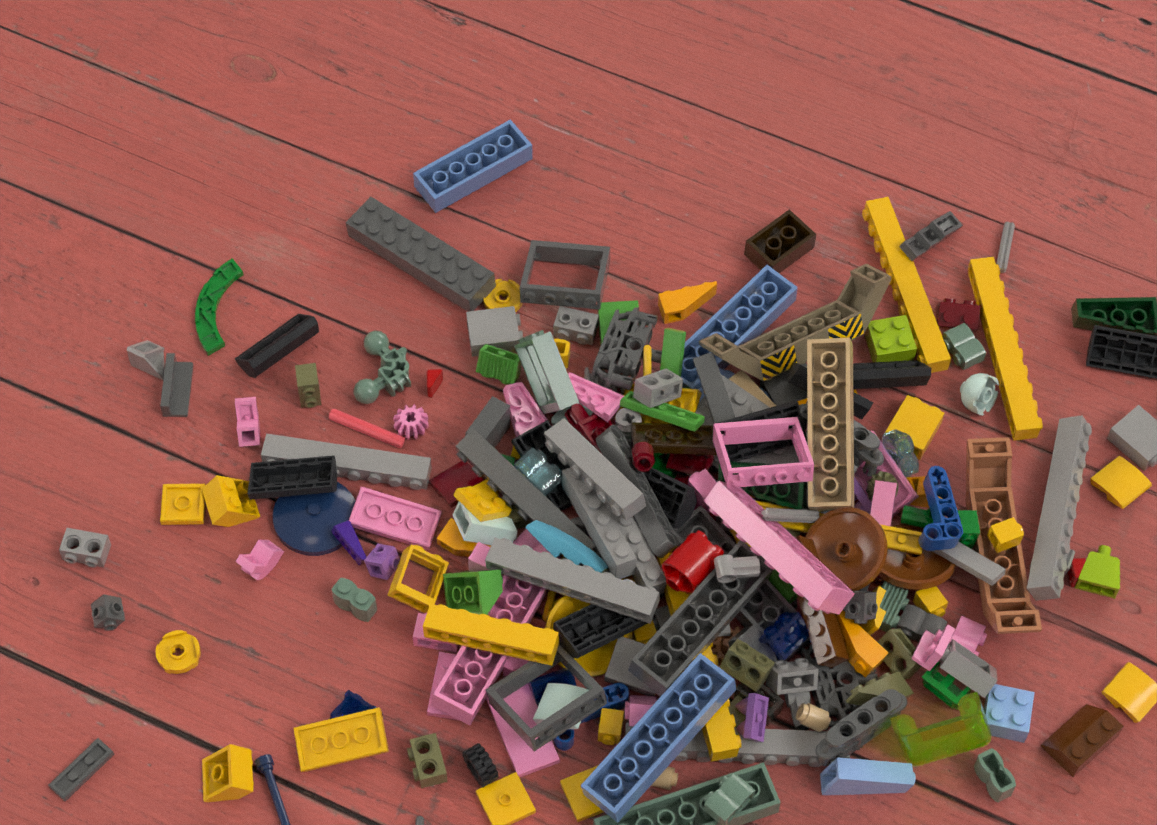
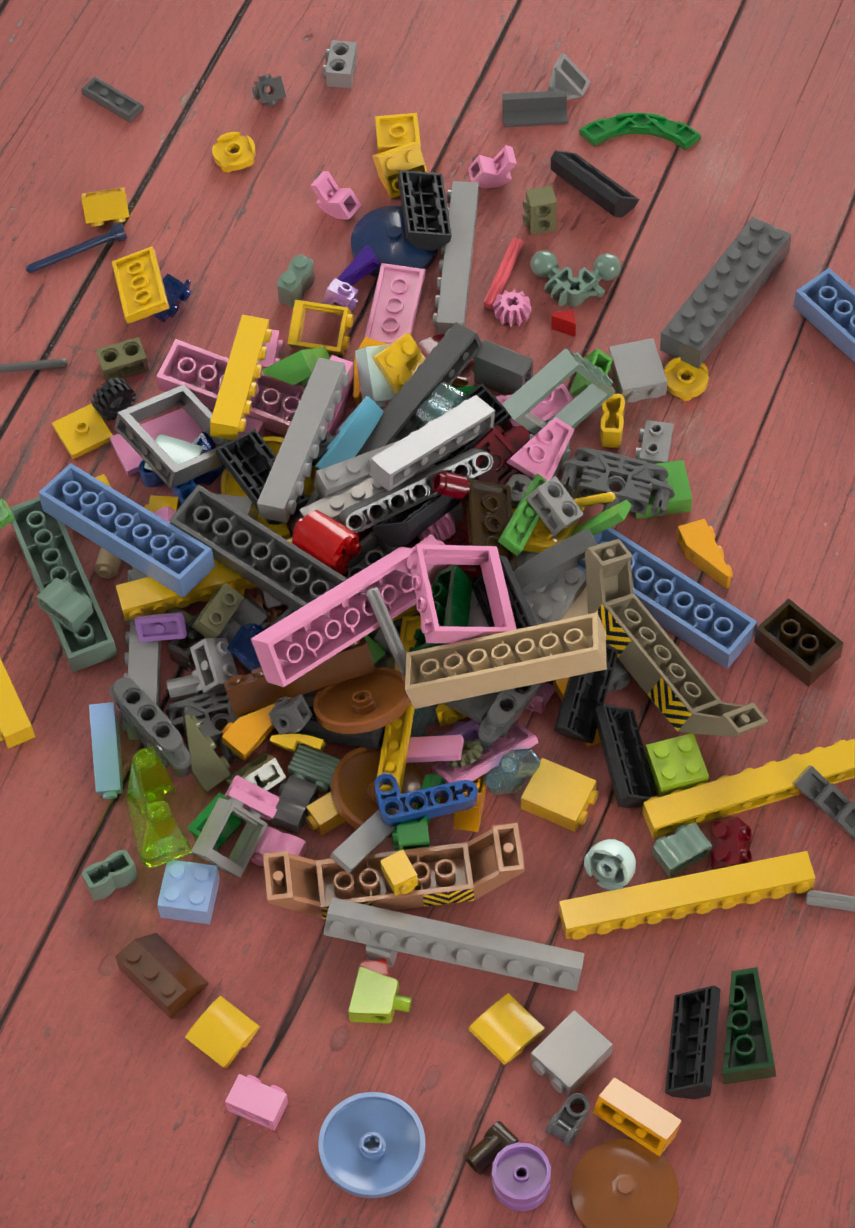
camera: 90 degrees right, 0 degrees up
(571, 254) = (711, 458): dark grey window -> none
(731, 568) = (311, 569): light grey piece -> none
(813, 717) = (167, 686): tan brick -> none

